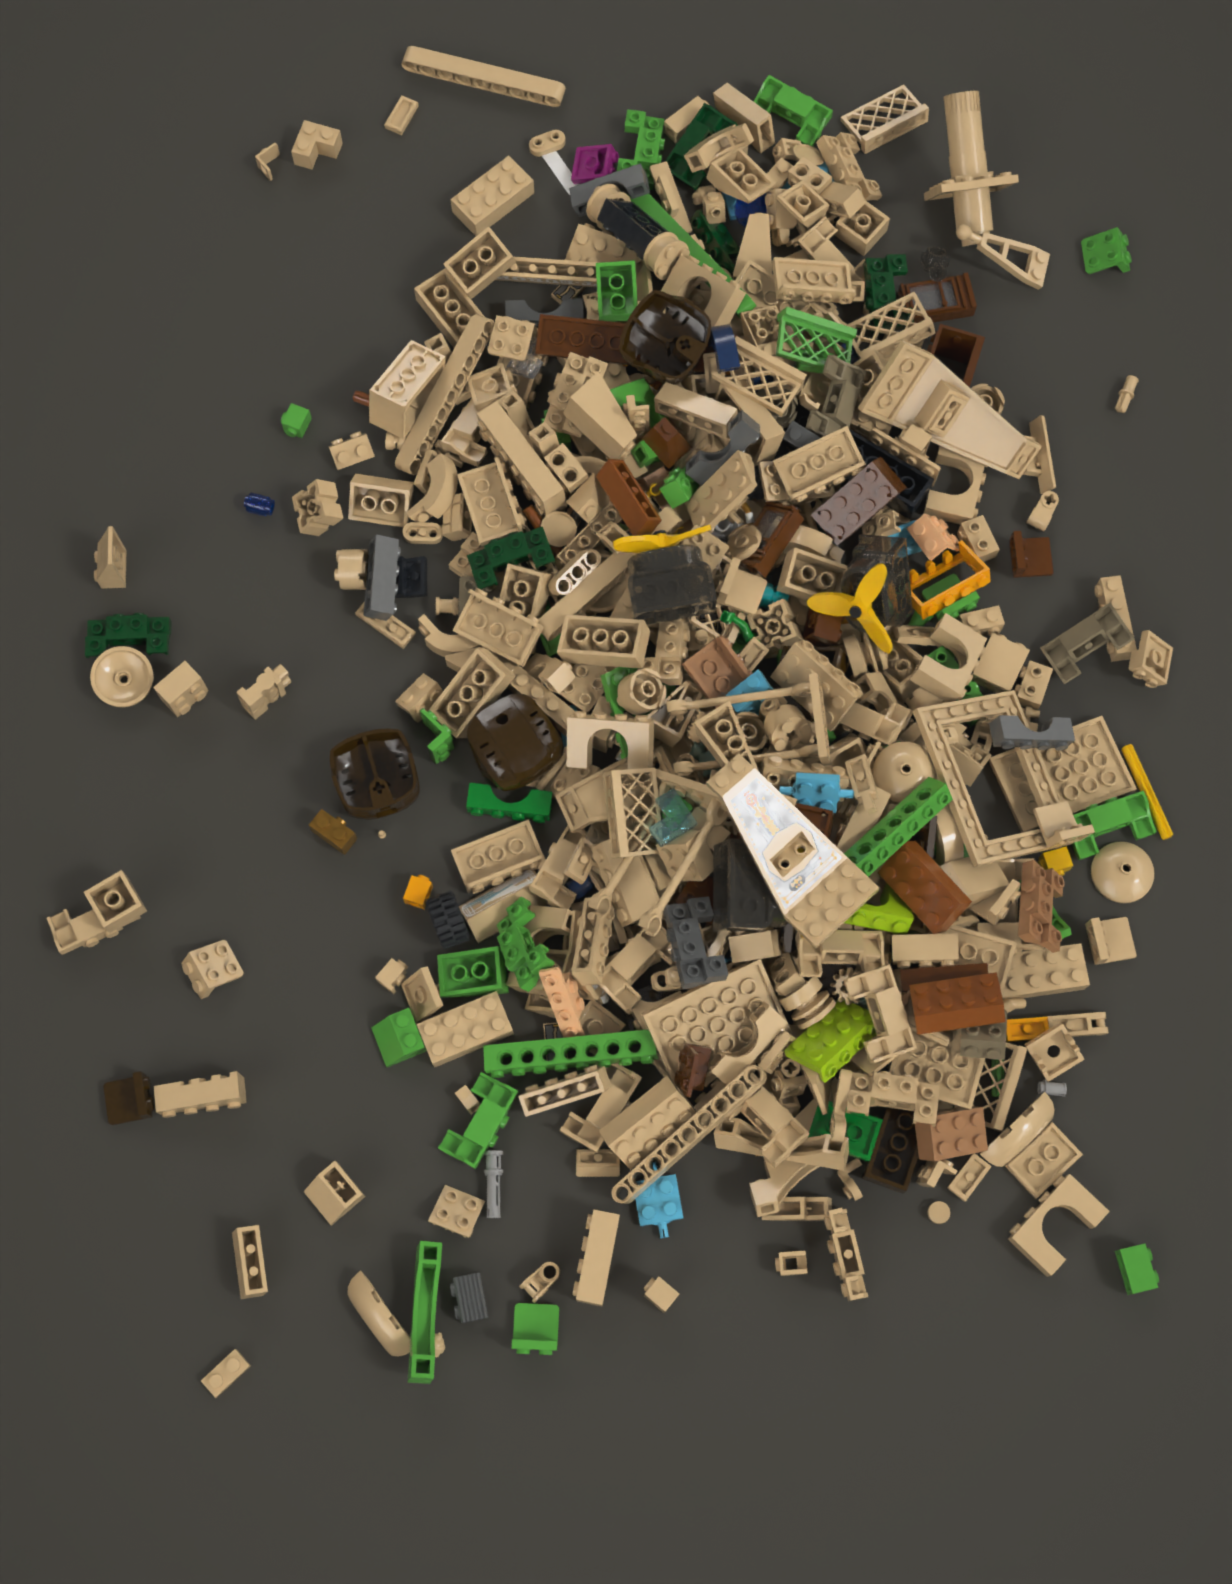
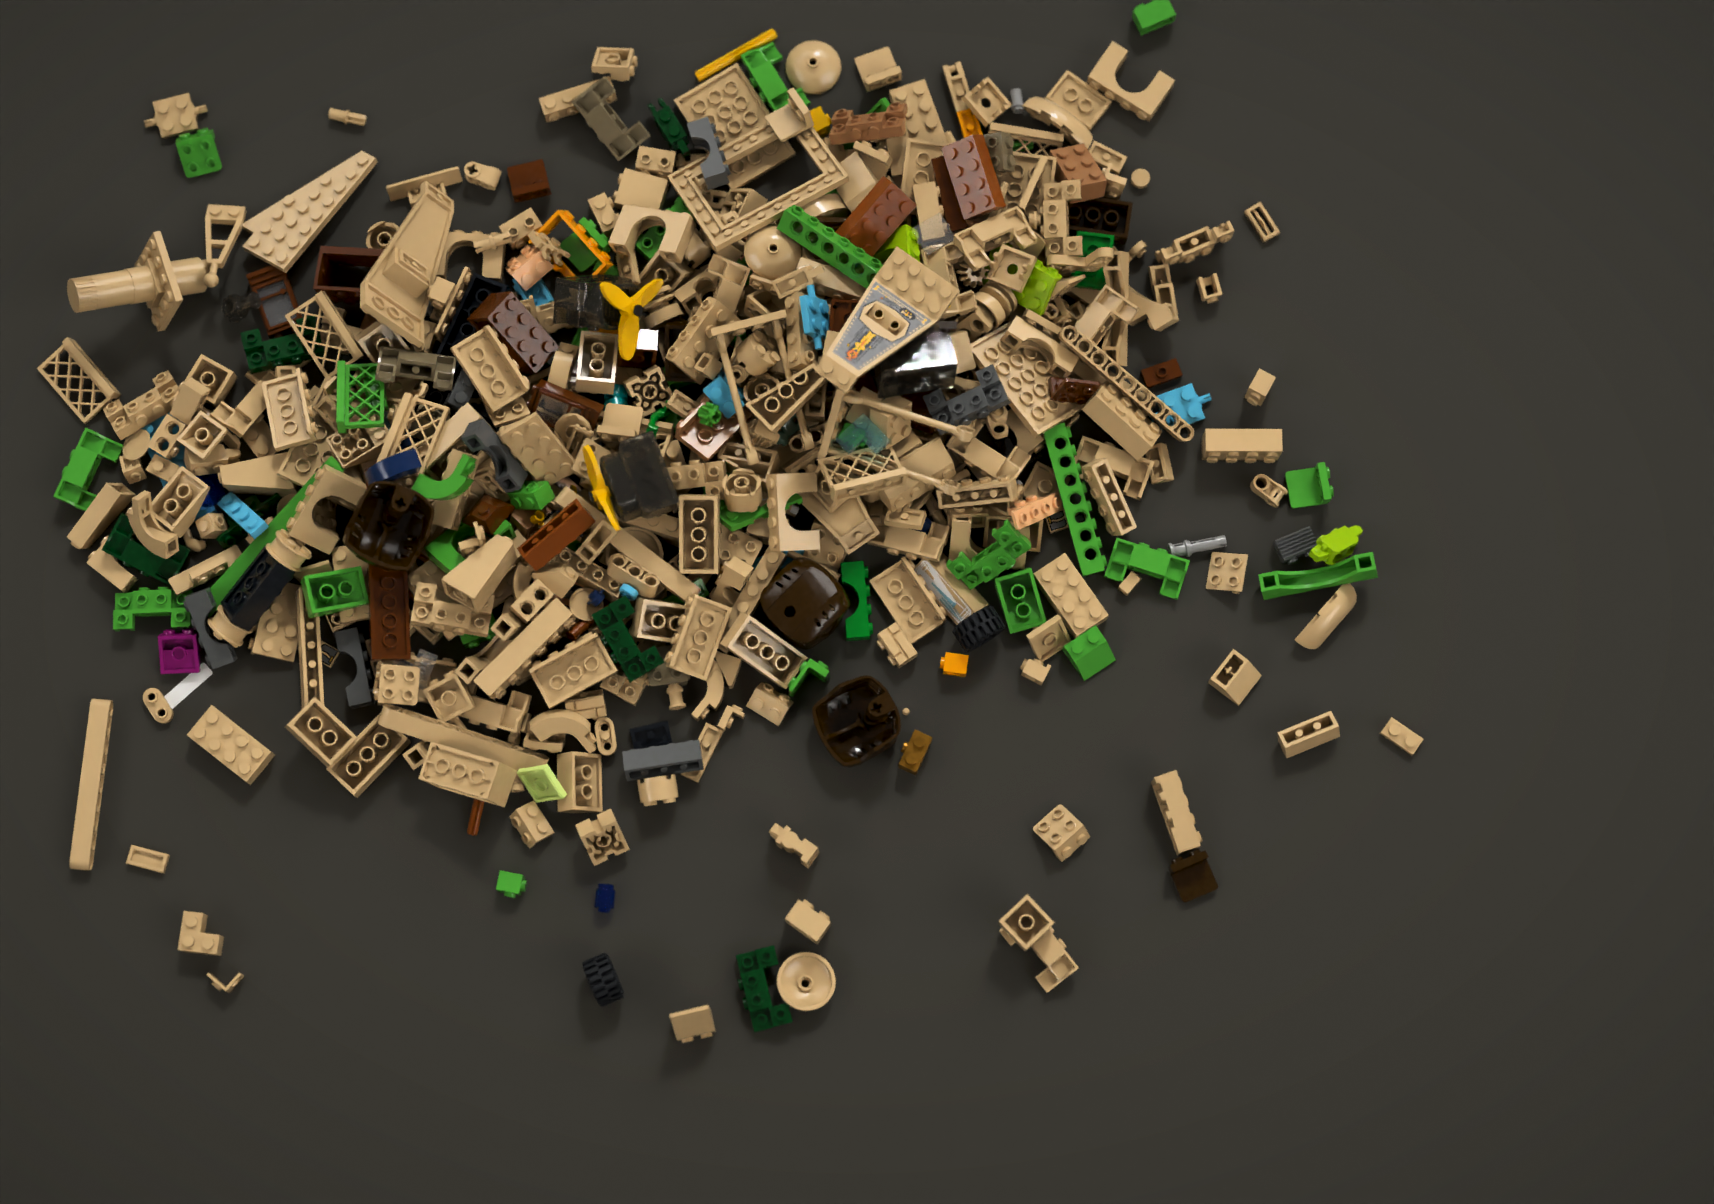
camera: 100 degrees left, 5 degrees up
(174, 484) = (603, 979): none -> black tyre
(384, 459) = (541, 783): none -> yellowish green plate
(412, 651) = (727, 720): none -> tan bracket
(452, 834) = (896, 645): none -> tan brick
(456, 1342) = (1336, 545): none -> lime hinge
(558, 565) = (629, 591): none -> medium azure tile
(561, 536) = (596, 597): none -> dark blue plate
(697, 384) = (450, 487): none -> bright green arch
(702, 1187) = (1161, 373): none -> reddish brown plate
(715, 230) = (242, 515): none -> medium azure plate
(731, 673) = (709, 414): none -> bright green gear
(735, 548) = (583, 431): none -> tan tile
(784, 678) = (708, 366): none -> tan plate
(842, 1011) = (1005, 258): none -> tan piece
(845, 1352) = (1255, 225): none -> tan tile
(897, 946) = (933, 233): none -> clear piece
(898, 1067) = (1034, 220): none -> tan plate
(941, 1072) = (1032, 182): none -> tan tile
(952, 557) = (548, 246): none -> tan plate
(965, 503) = (492, 242): none -> tan pin
(1021, 329) = (292, 224): none -> tan wing
(1070, 704) = (670, 128): none -> dark green hinge
(1149, 238) = (175, 115): none -> tan plate

